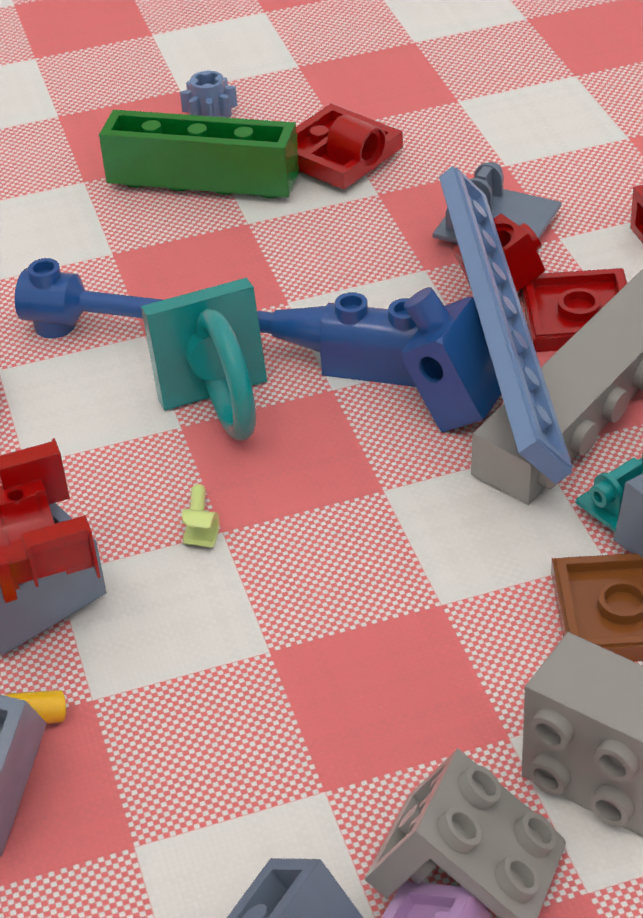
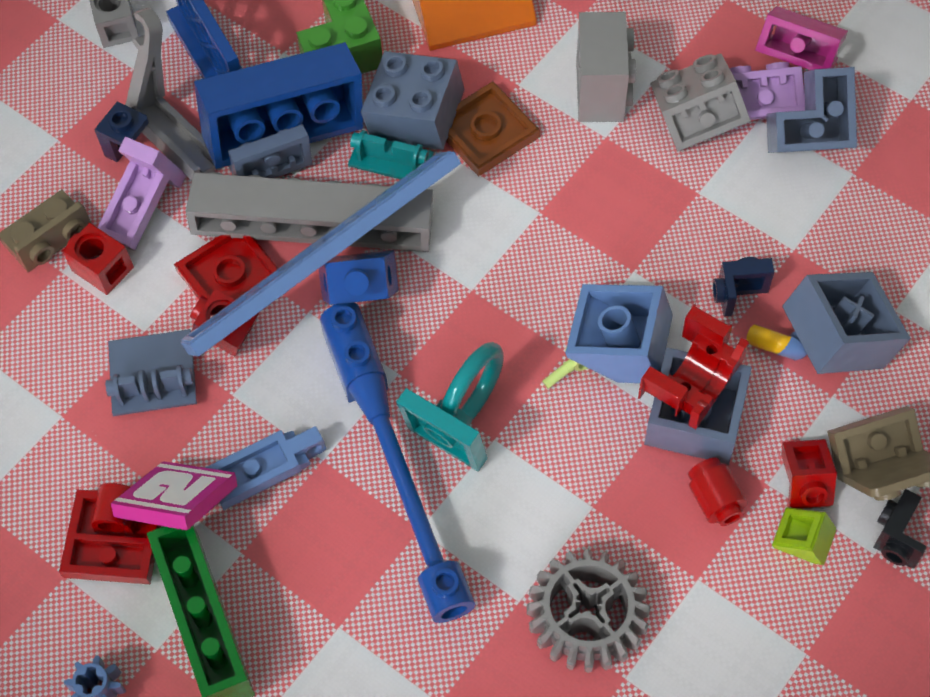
camera: 125 degrees left, 20 degrees up
(135, 723) = (741, 278): none -> dark blue bracket
(176, 552) = (620, 330): none -> medium blue slope
(314, 248) = (269, 462): none -> medium blue hinge
(321, 156) = (174, 495): none -> dark pink tile

